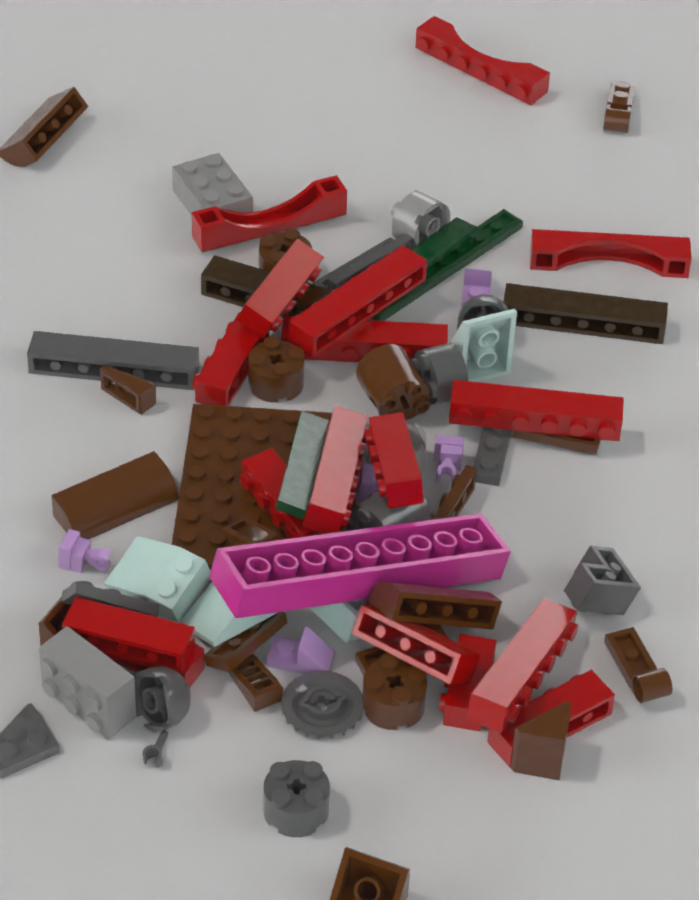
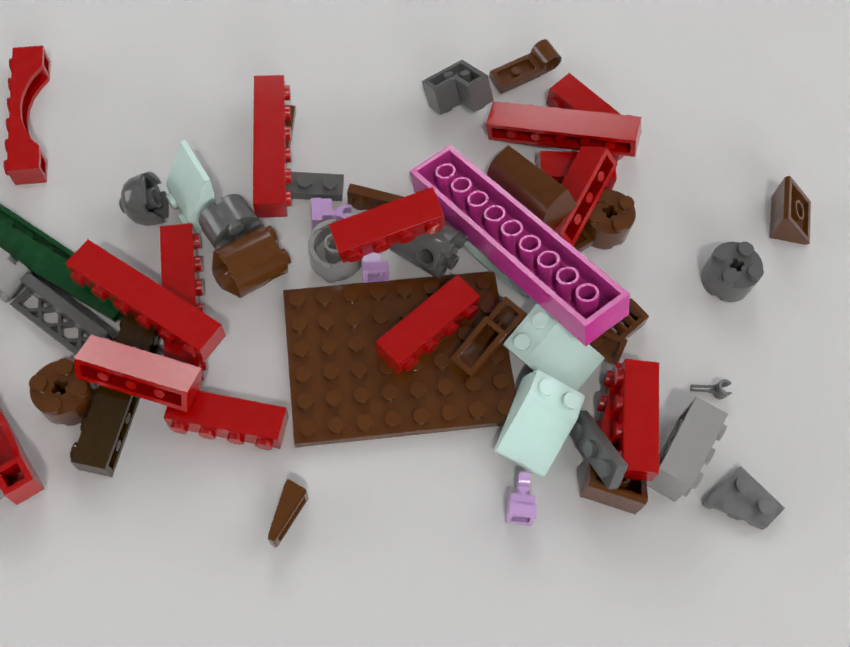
camera: 105 degrees left, 20 degrees up
(84, 356) = (242, 541): dark grey brick -> none
(115, 496) = (440, 490): reddish brown brick -> none
(161, 697) = (676, 387): dark grey cylinder -> none
(276, 370) = (245, 360): reddish brown brick -> none
(301, 465) = (393, 310): tile -> none
(335, 691) = (633, 259): dark grey gear -> none
(337, 472) = (396, 280): brick -> none
(476, 283) = (83, 219): lavender slope -> none
(542, 743) = (631, 100): reddish brown slope -> none
(587, 313) = (118, 128): dark brown brick -> none

